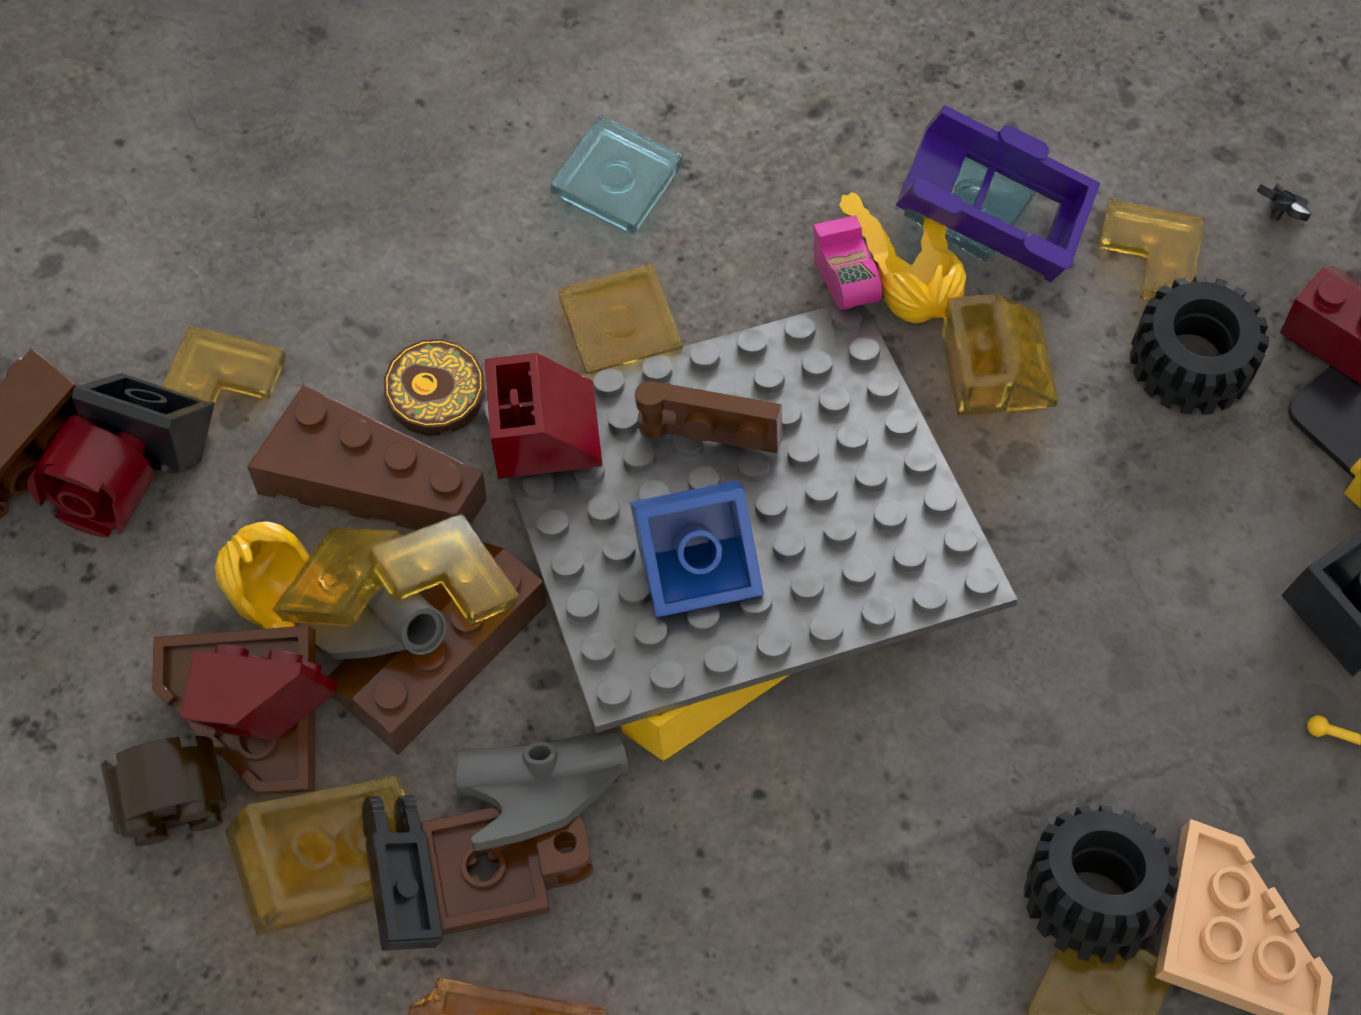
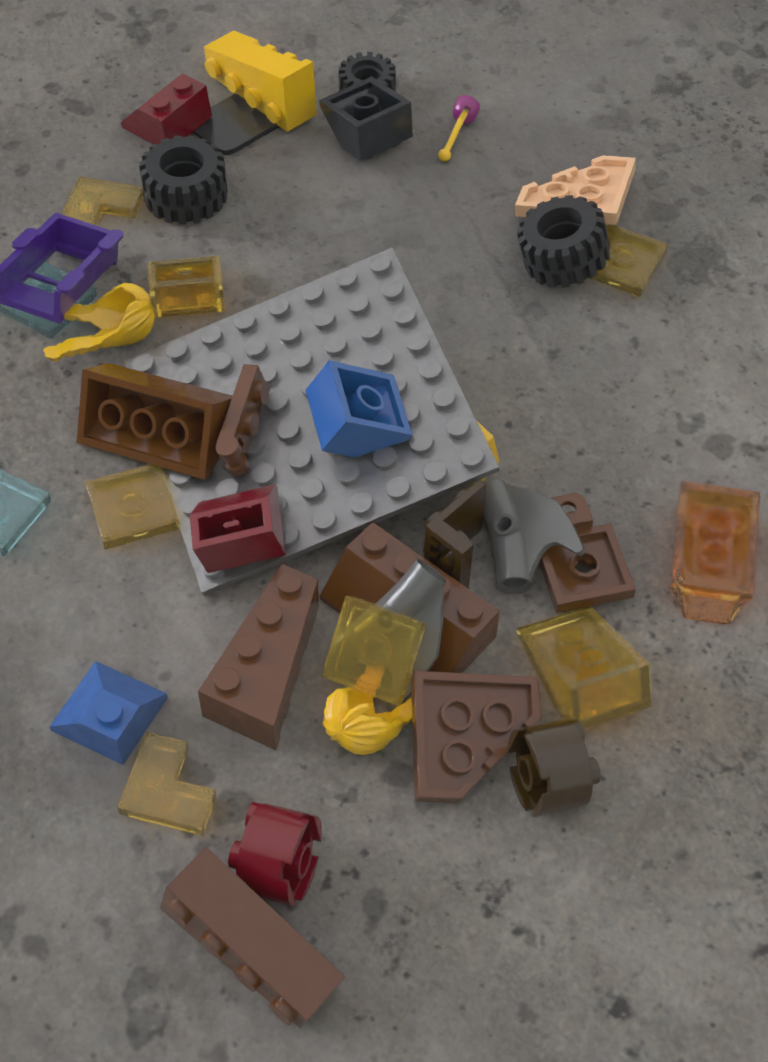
camera: 90 degrees left, 10 degrees down
(165, 420) = (220, 807): black slope -> none
(252, 693) = (486, 685): dark red slope -> none
(316, 311) = (109, 712): none -> blue slope
(401, 876) = (598, 607): black hinge -> none
(434, 386) = (185, 624): tile -> none
(450, 556) = (370, 564): clear yellow tile -> none
(498, 667) = (450, 533): none -> dark brown bracket
(740, 316) = (151, 418): none -> reddish brown slope
(846, 263) = (118, 348): dark pink leg -> none
(1286, 202) = (71, 137): black plant -> none

